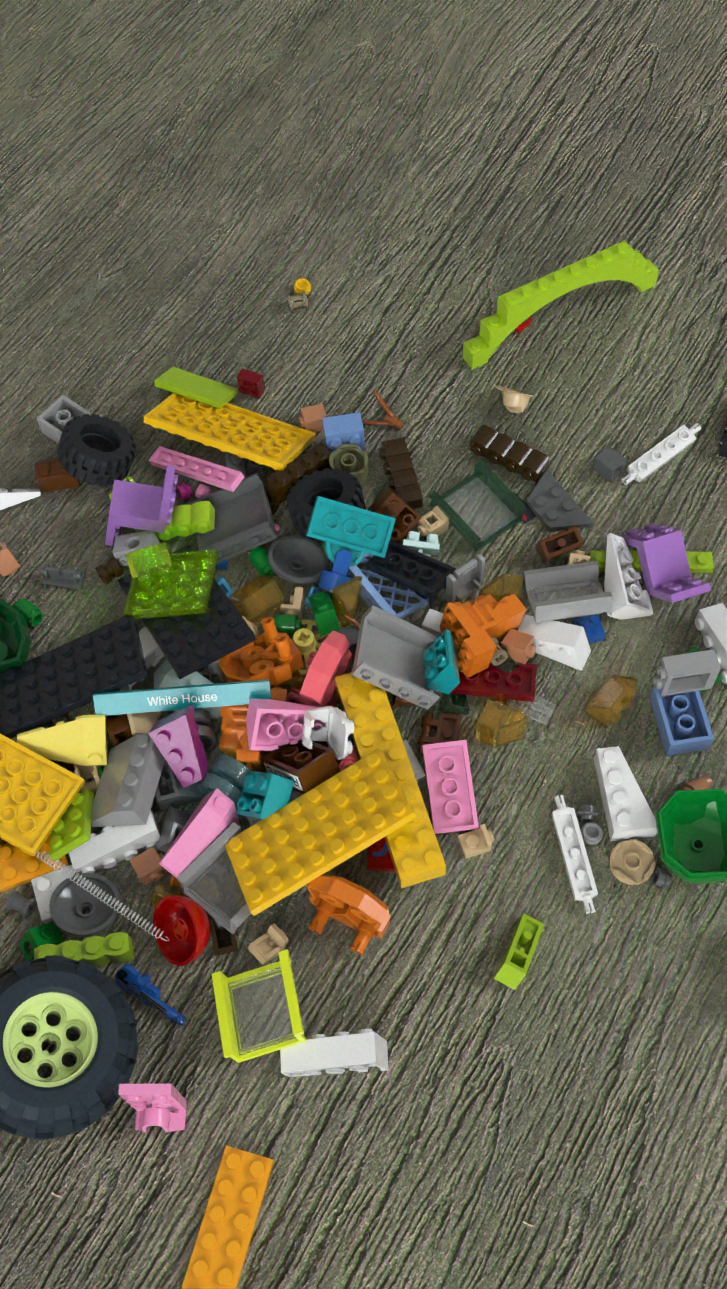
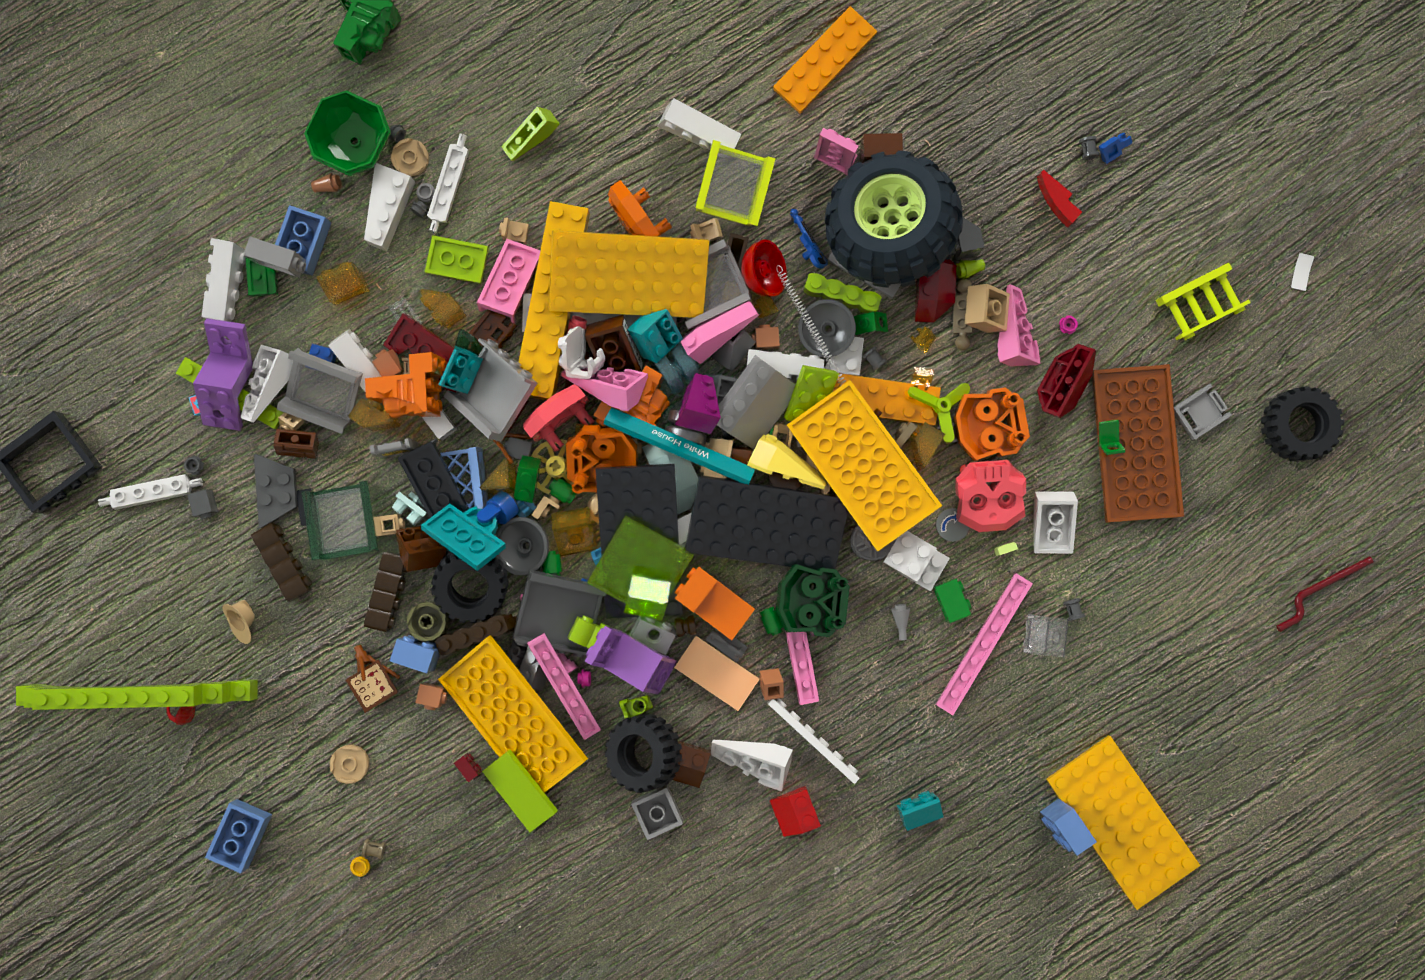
camera: 155 degrees left, 25 degrees up
(62, 550) = (717, 673): none -> light nougat tile
(87, 591) = (714, 602): none -> orange brick
(103, 1140) = (877, 143): none -> reddish brown brick
(354, 347) = (349, 764): none -> tan tile
(367, 404) = (376, 687): none -> piece
(411, 261) = (238, 836): none -> medium blue brick
(517, 782) = (456, 259): none -> lime plate
(642, 486) = (188, 465): none -> dark grey plate

